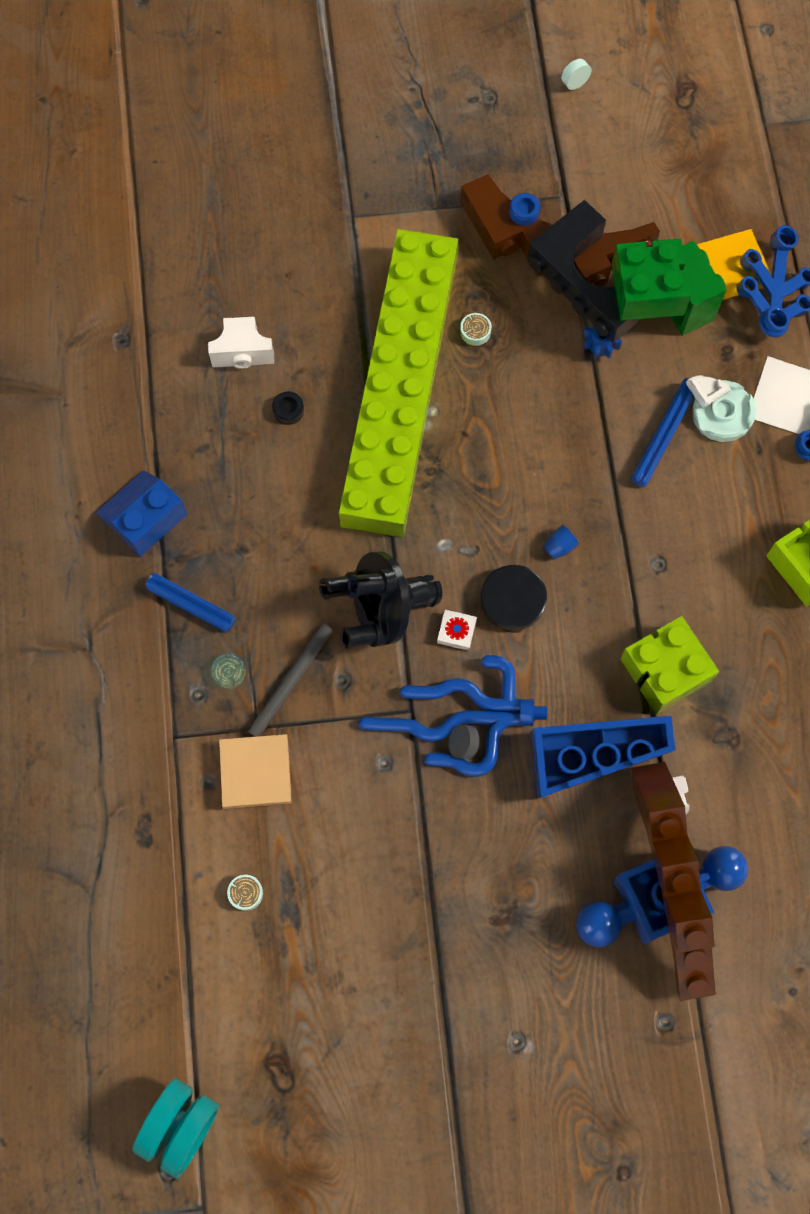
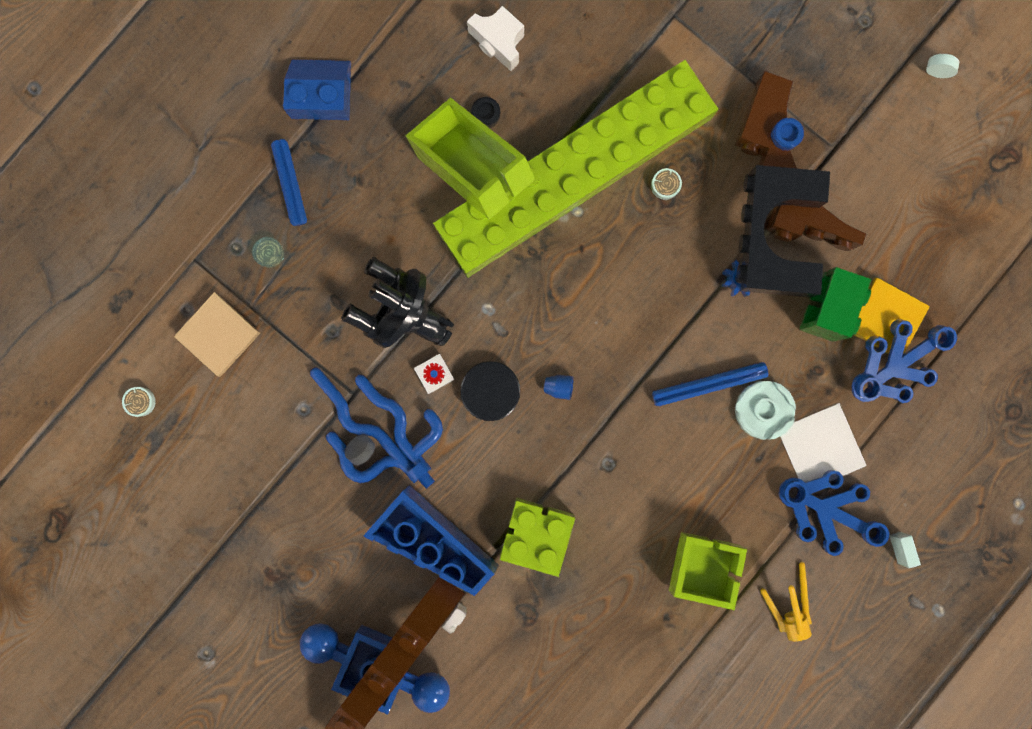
camera: 45 degrees right, 15 degrees up
(290, 681) = (298, 298): dark grey bar -> none
(318, 437) = (470, 158): none -> lime piece
(650, 279) = (804, 279): green piece -> none
(707, 389) = (768, 386): white tile -> none

